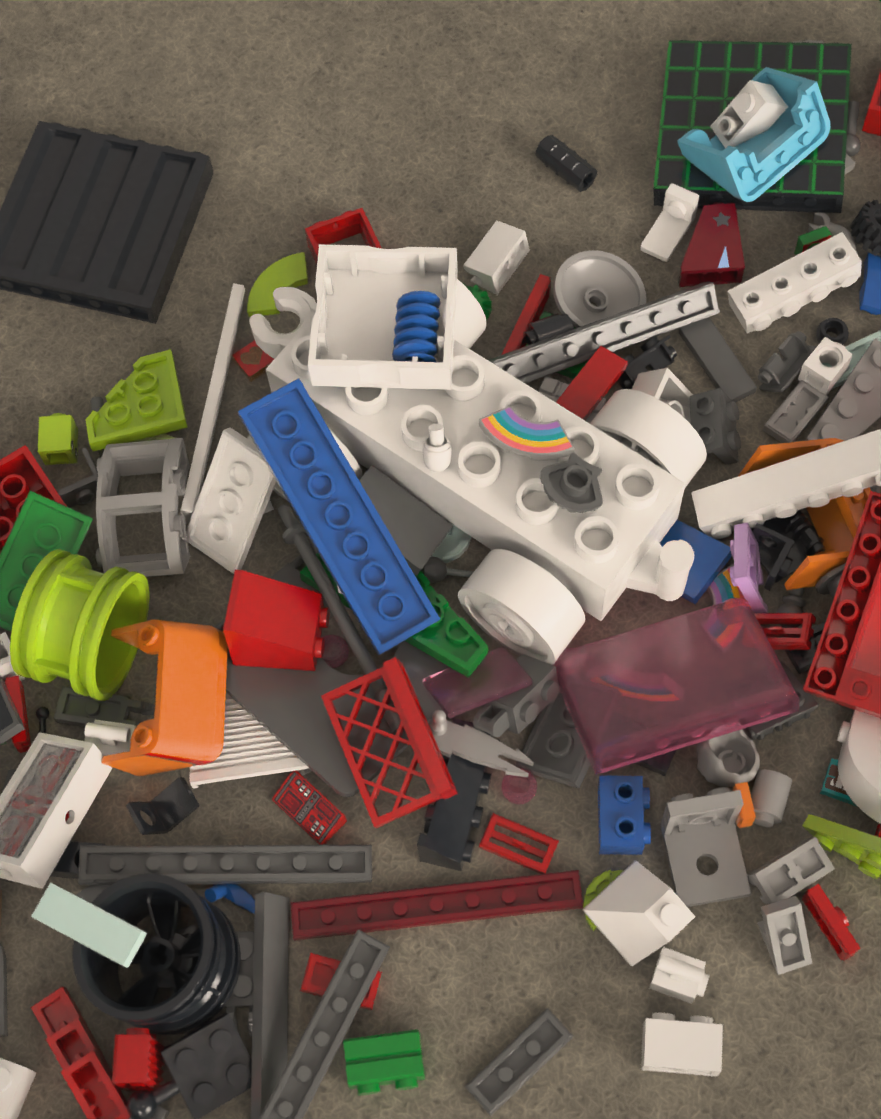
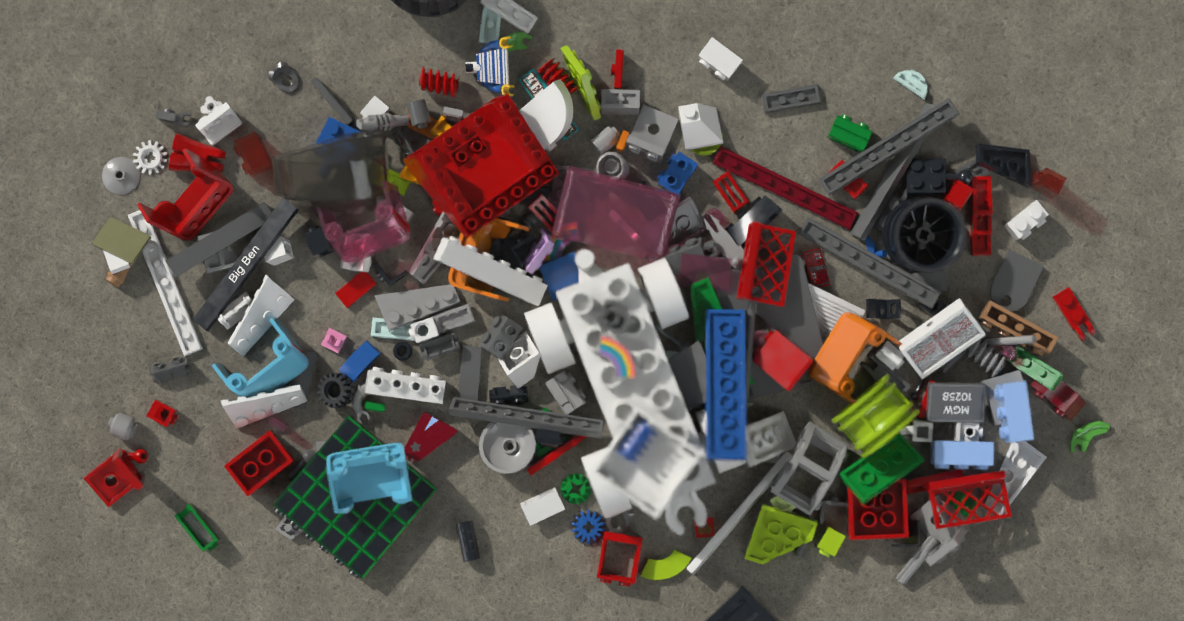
camera: 150 degrees left, 20 degrees up
(89, 925) = (948, 259): light aqua tile -> none
(436, 449) = (663, 378): white cylinder -> none
(592, 382) = (554, 390): red tile -> none
(672, 223) = (442, 465): white bracket -> none
(679, 976) = (700, 89): white brick -> none
(749, 114) = (363, 491): white slope -> none
(785, 934) = (642, 76): light grey slope -> none

